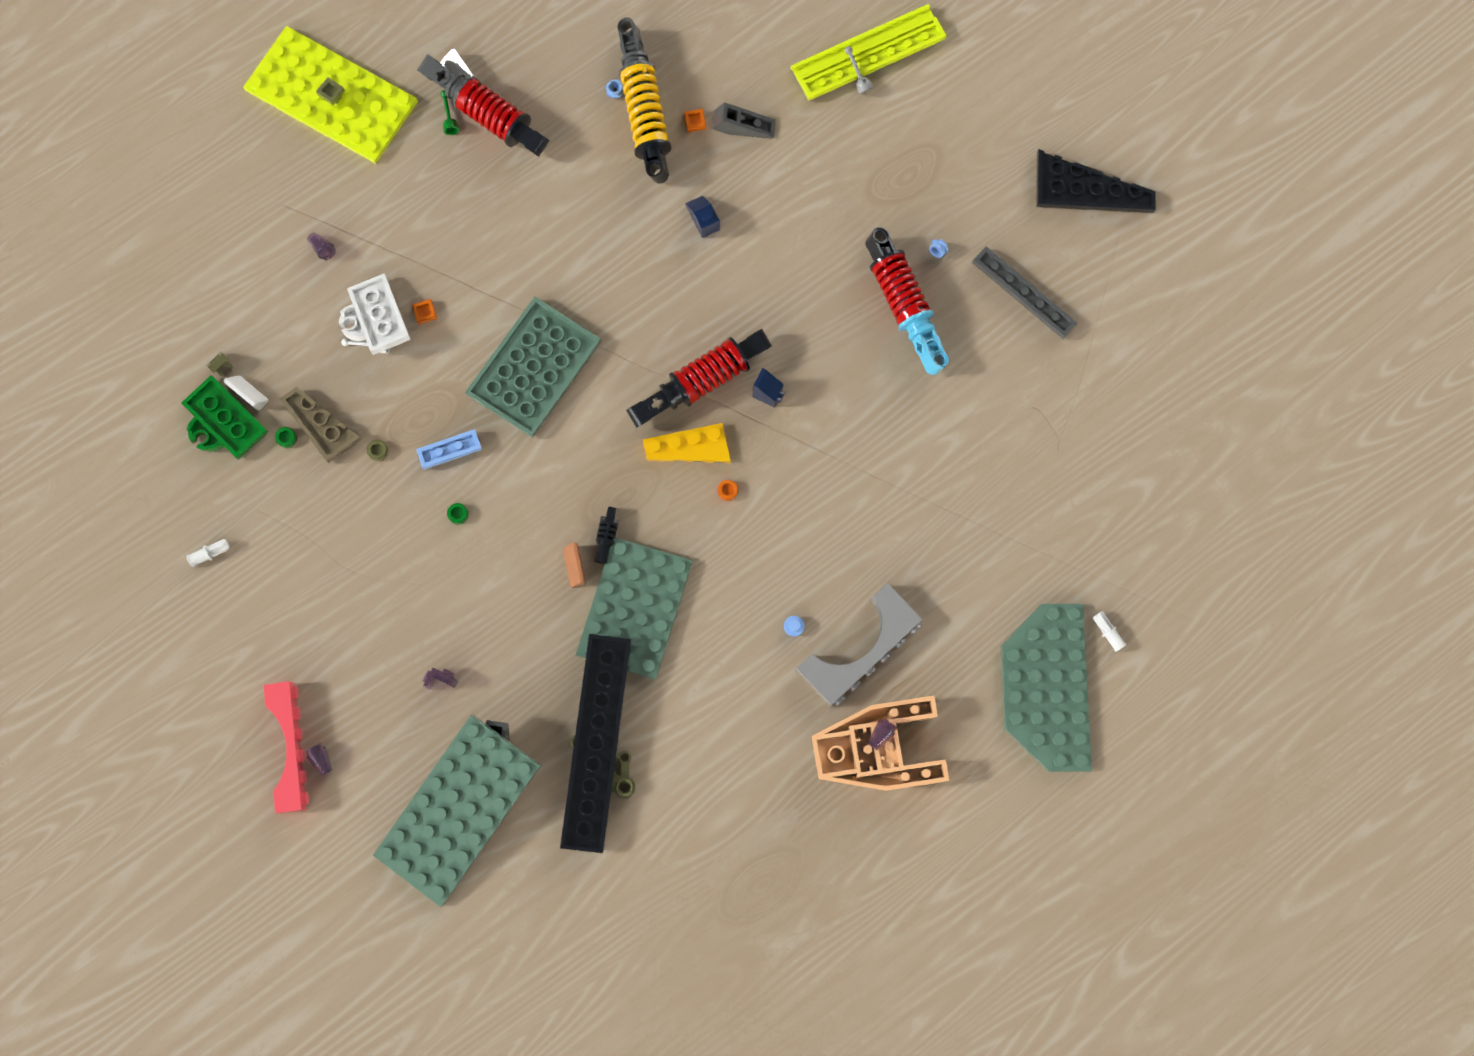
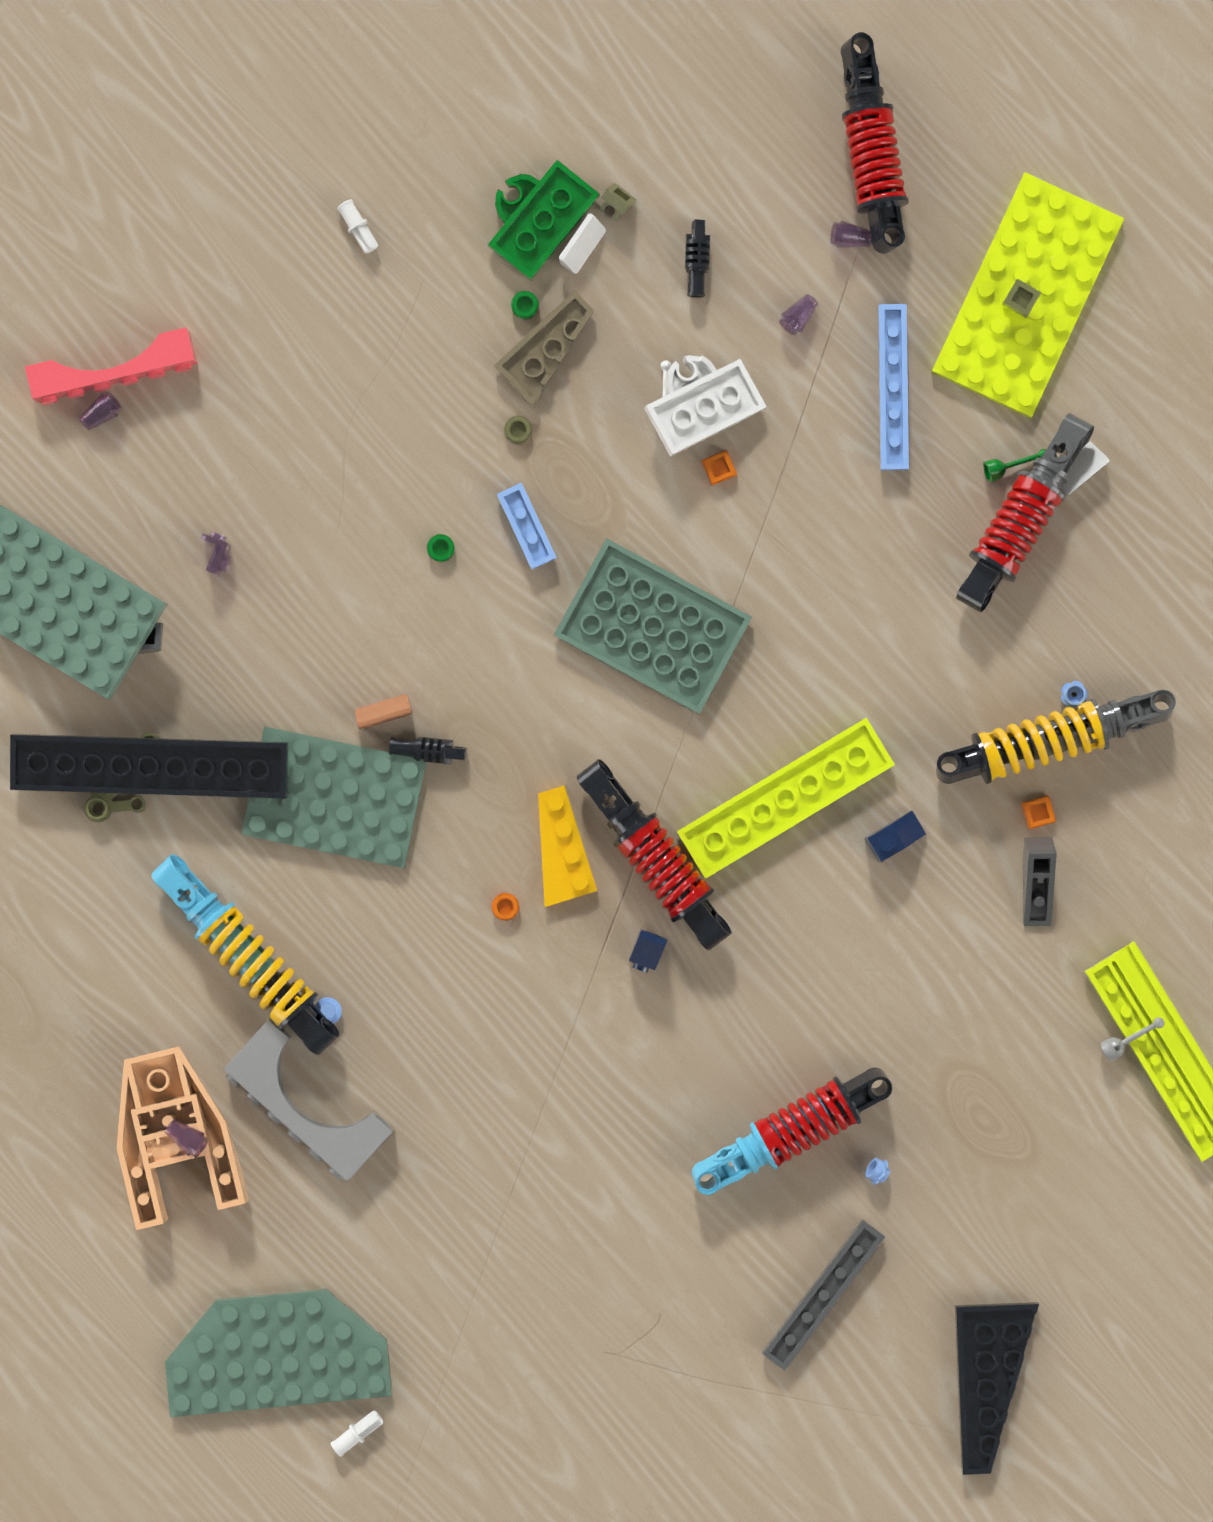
camera: 85 degrees right, 10 degrees up
(206, 182) = (872, 145): none -> piece
(269, 207) = (849, 235): none -> clear purple cone
(269, 312) = (697, 258): none -> black hinge
(382, 187) = (893, 387): none -> light blue plate
(667, 286) = (785, 798): none -> neon yellow plate
(725, 695) = (223, 928): none -> piece

